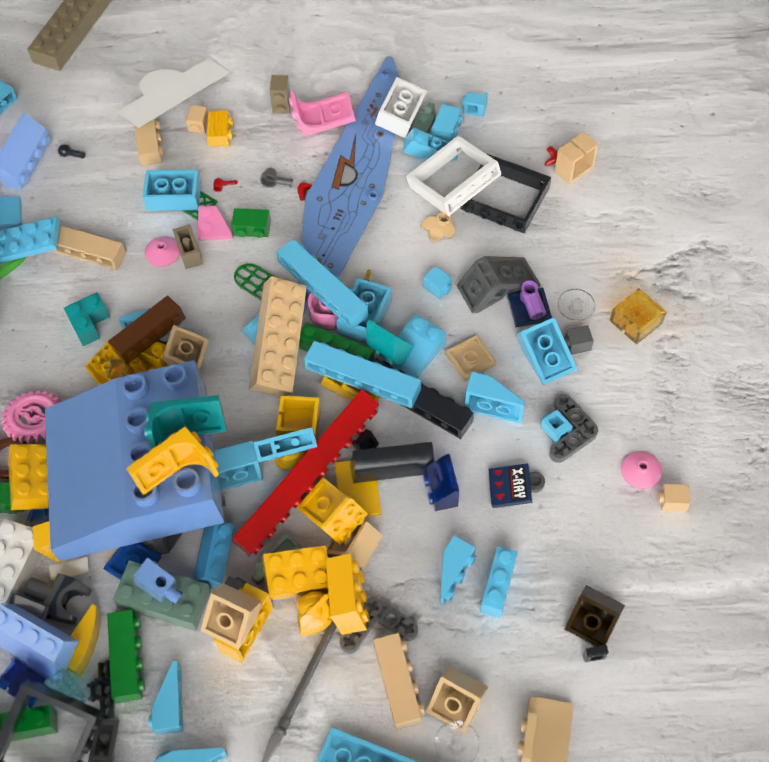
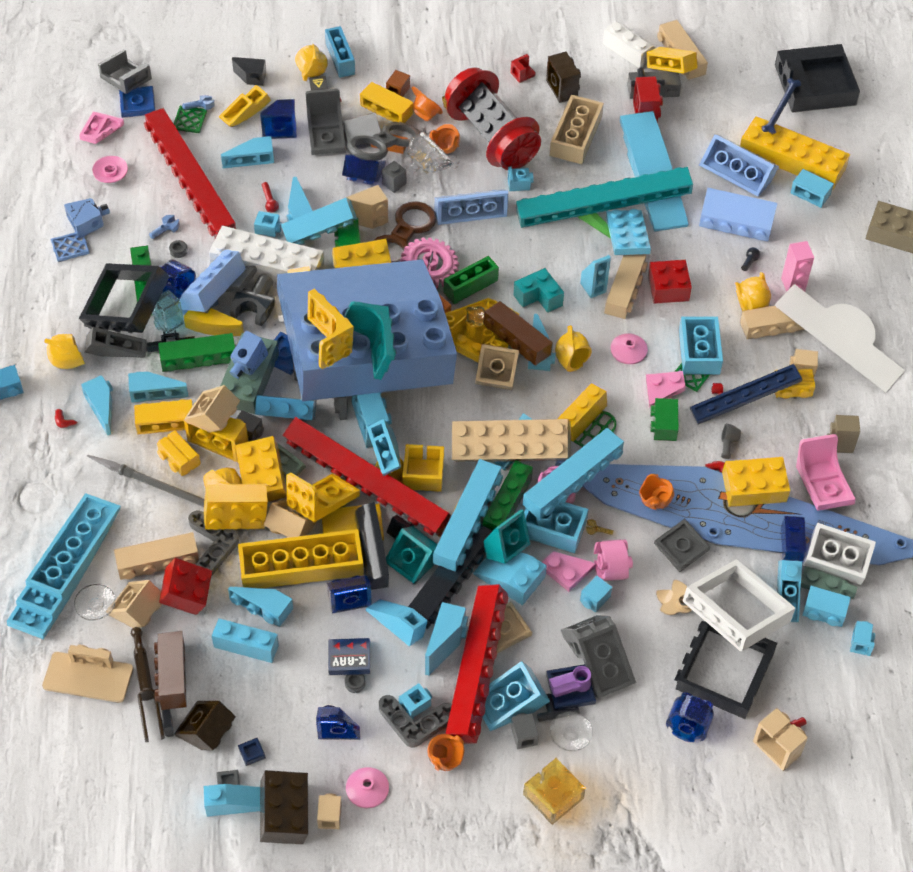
camera: 85 degrees right, 5 degrees down
(62, 373) = (471, 279): none -> green brick
(79, 266) = (595, 277): none -> medium azure slope
(91, 211) = (669, 281): none -> red brick
(99, 107) = (797, 265): none -> bright pink brick
(118, 147) = (753, 293): none -> yellow helmet
(164, 285) = (572, 350): none -> yellow helmet
(187, 246) = (627, 363): dark tan brick -> none
(211, 687) = (161, 416): none -> yellow brick
(230, 160) = (745, 394): none -> dark blue tile
(238, 285) = (585, 409): none -> yellow brick
(264, 667) = (178, 453): none -> yellow brick
(328, 156) = (756, 481): none -> yellow brick
(338, 226) = (656, 492): none -> orange cap
(385, 137) = (793, 538): none -> clear blue brick
(385, 218) = (682, 545): none -> dark grey tile
(396, 427) = (411, 554): none -> teal slope
(406, 265) = (612, 560): none -> bright pink brick
(406, 532) = (301, 559): none -> yellow brick
(408, 305) = (567, 569): none -> bright pink wing
(441, 642) = (185, 586): none -> red brick
(471, 439) = (400, 620): none -> medium azure slope
(517, 372) = (477, 663): none -> red brick
(541, 649) = (171, 670): none -> brick
(551, 681) = (145, 684): none -> dark brown piece
(555, 313) = (551, 712): none -> black piece
(560, 216) = (690, 717): none -> clear blue brick
(585, 495) = (336, 724): none -> clear blue slope
(608, 399) = (446, 752): none -> orange cap
(616, 573) = (251, 751): none -> dark blue tile
(650, 593) = (228, 777): none -> dark grey tile
(672, 583) = (231, 799): none -> medium azure slope
(679, 534) = (283, 807): none -> dark brown brick

